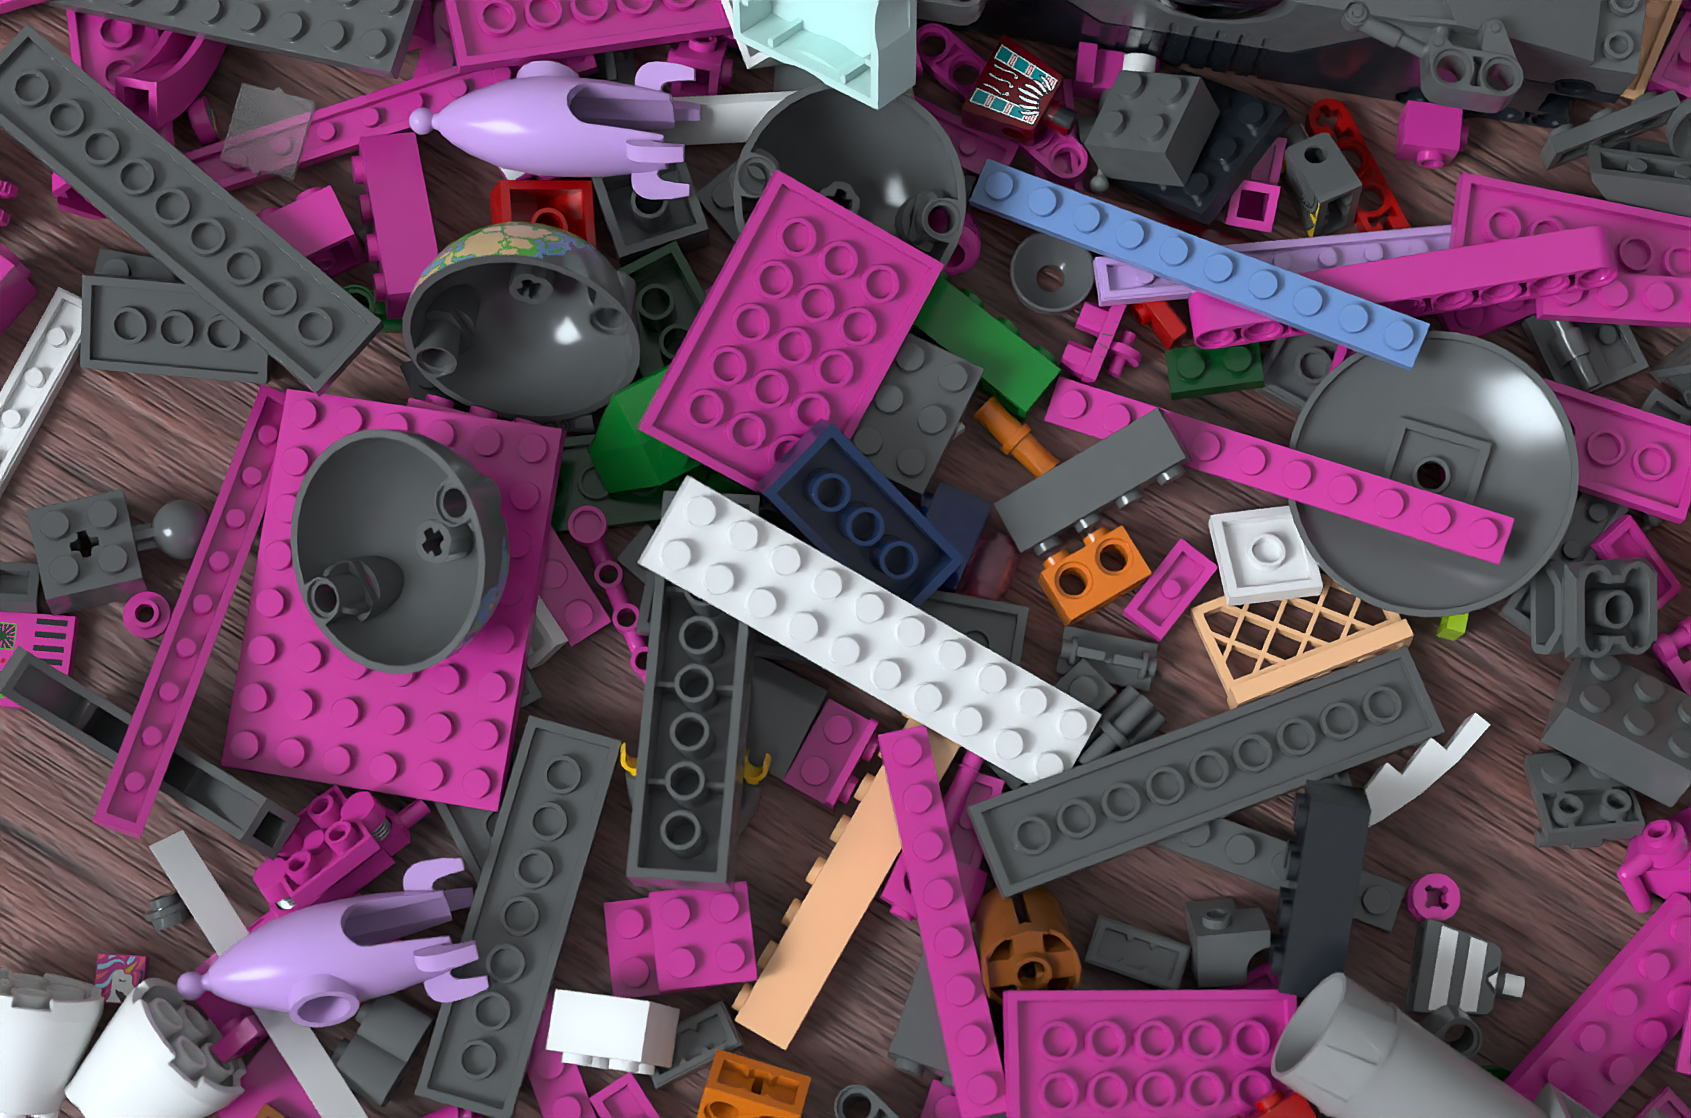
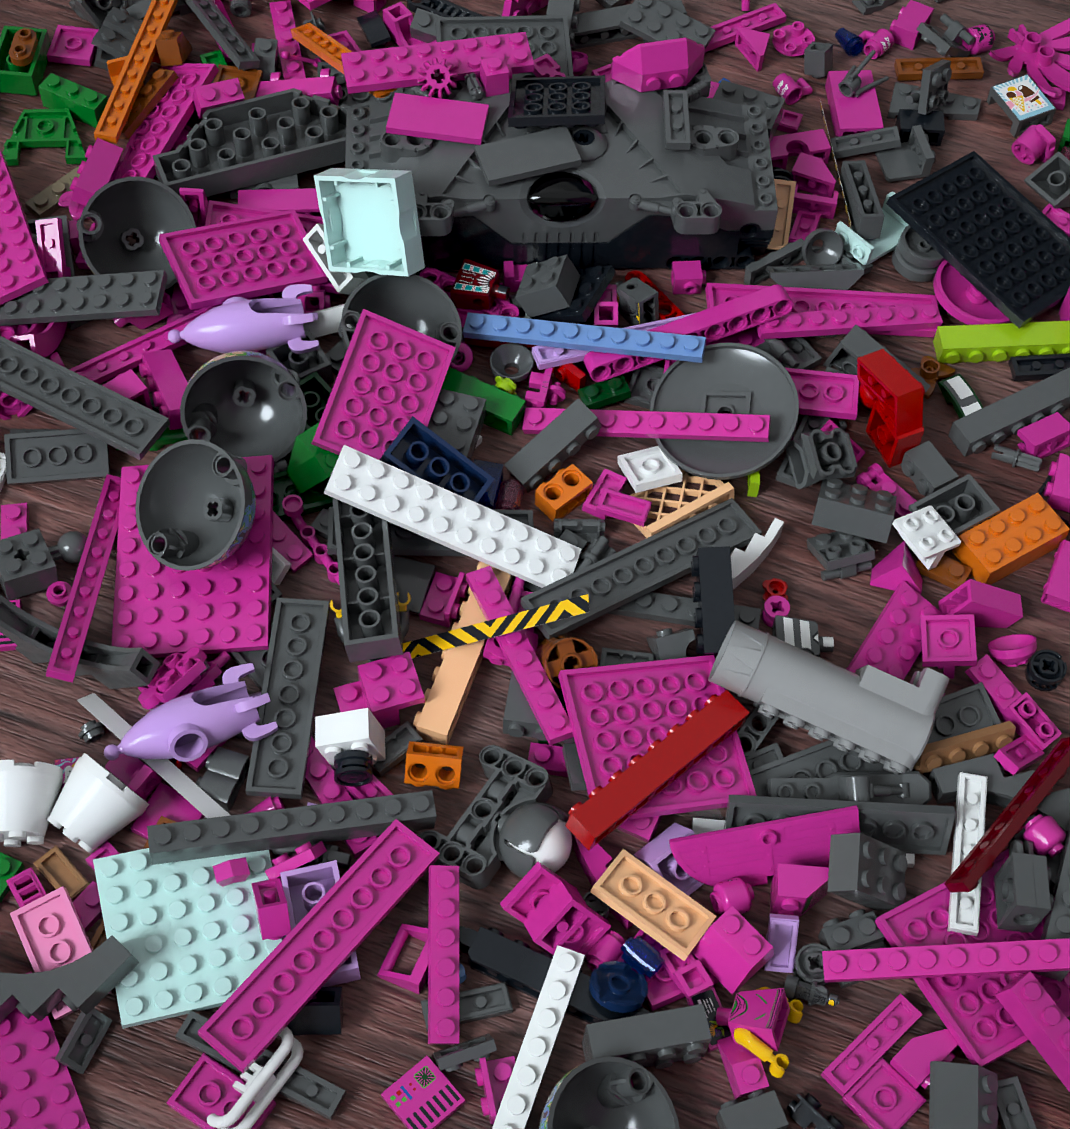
camera: 10 degrees left, 20 degrees down
(84, 455) = (14, 519): none -> dark pink plate
(268, 131) = (94, 359): clear piece -> none
(608, 1084) = (353, 768): none -> black wheel
(912, 868) = (498, 626): none -> sticker
(1015, 438) = (507, 438): orange pin -> none
(1031, 323) = (506, 384): none -> lime plate
(1199, 632) = (623, 507): none -> dark pink tile
(1452, 844) = (774, 585): none -> red plate
(1659, 846) = (885, 560): dark pink plate -> none

